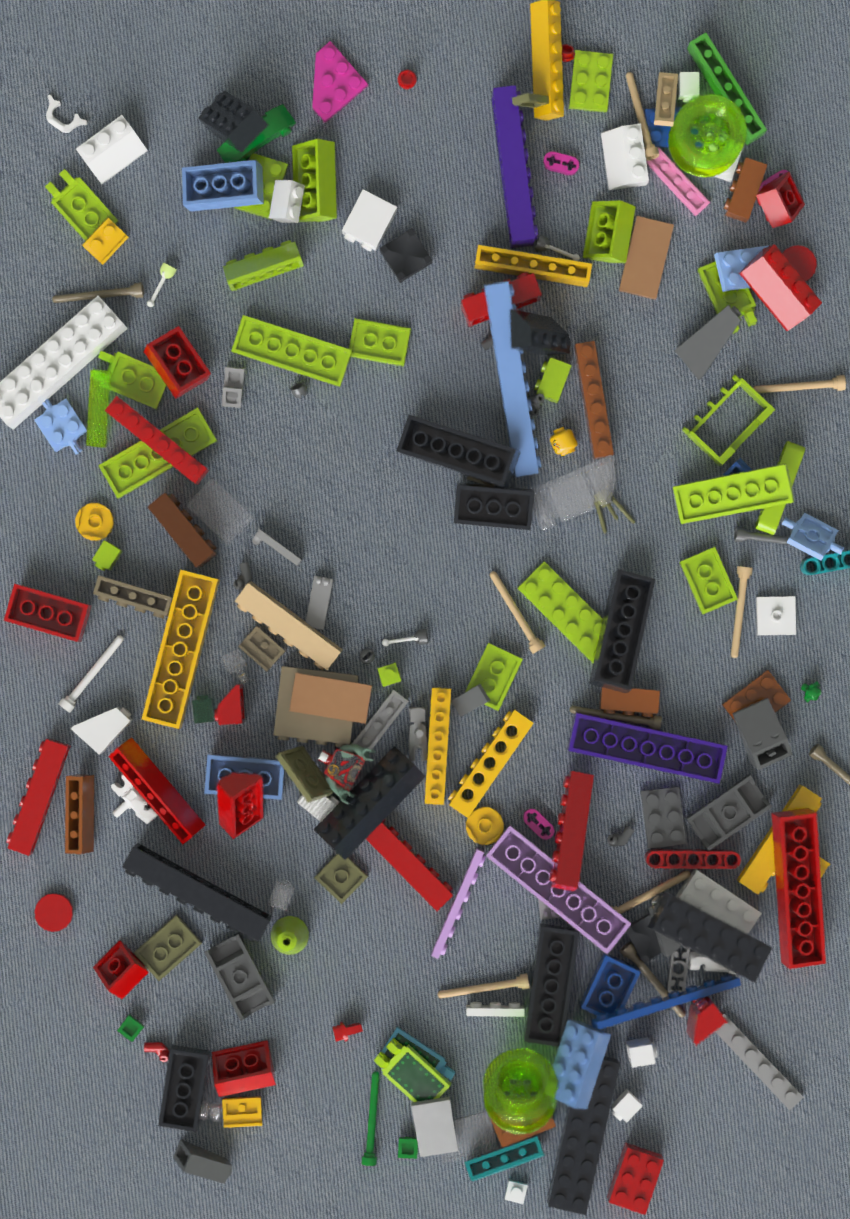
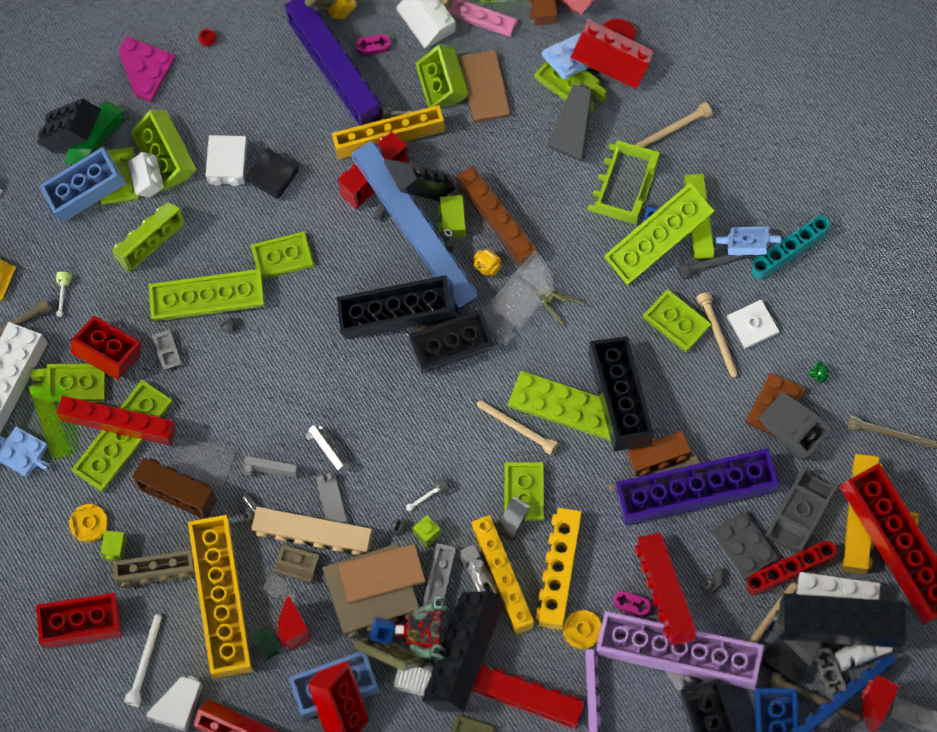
camera: 15 degrees left, 20 degrees down
(308, 749) = (382, 630): none -> blue slope
(338, 553) = (329, 447): none -> hinge

